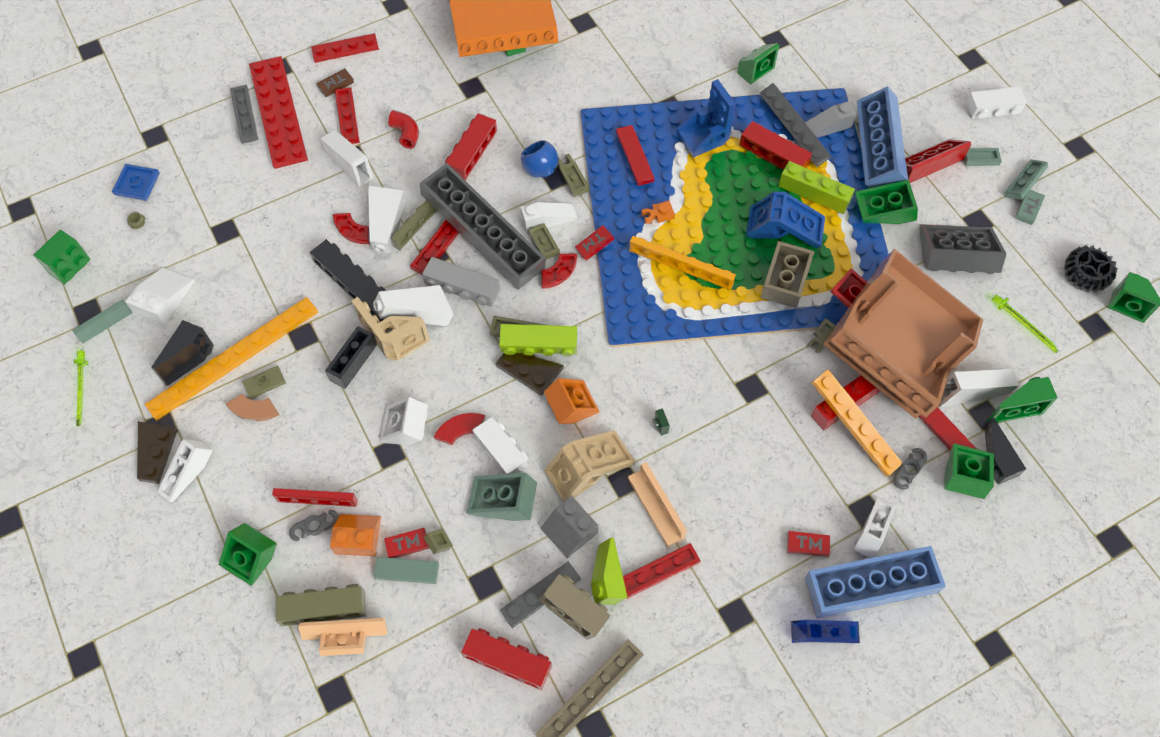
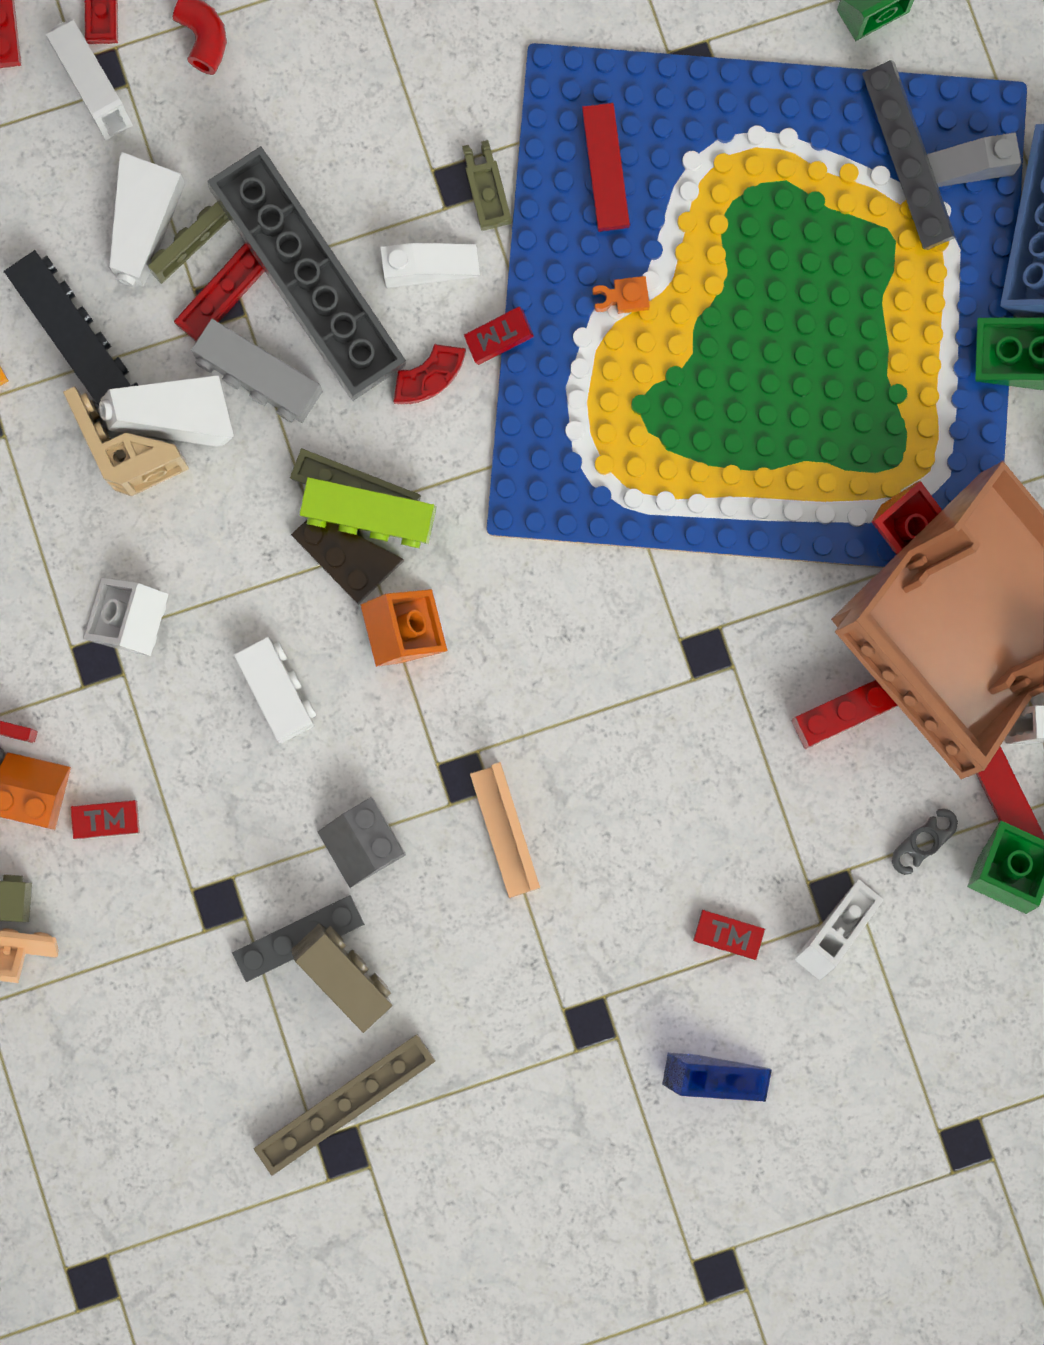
camera: 10 degrees right, 20 degrees up
(350, 229) = (80, 228): red tile -> none
(351, 357) = (53, 485): black brick -> none
(406, 570) = (99, 863): sand green tile -> none
(438, 541) = (153, 828): olive plate -> none
(458, 426) = (215, 636): red tile -> none
(472, 145) = (315, 93): red brick -> none
(503, 496) = (264, 772): sand green slope -> none
(506, 658) = (230, 1030): red brick -> none
(539, 159) = (431, 149): blue wheel -> none
(544, 241) = (412, 315): olive plate -> none
(585, 461) = (411, 742): tan bracket -> none
(607, 576) = (403, 936): lime slope -> none
(660, 422) = (541, 691): dark green plate -> none
(660, 570) = (487, 934): red tile -> none
(681, 262) = (629, 398): light orange plate -> none
(709, 125) = (745, 136): blue bracket -> none
(773, 147) = (859, 202): red brick -> none
(782, 215) = (839, 354): blue bracket -> none
(787, 274) = (813, 465): dark tan brick -> none
(816, 187) = (910, 298): lime brick -> none
(822, 334) = (850, 580): olive plate -> none
(856, 422) = (854, 756): light orange plate -> none
(874, 581) = (811, 1018): medium blue brick -> none

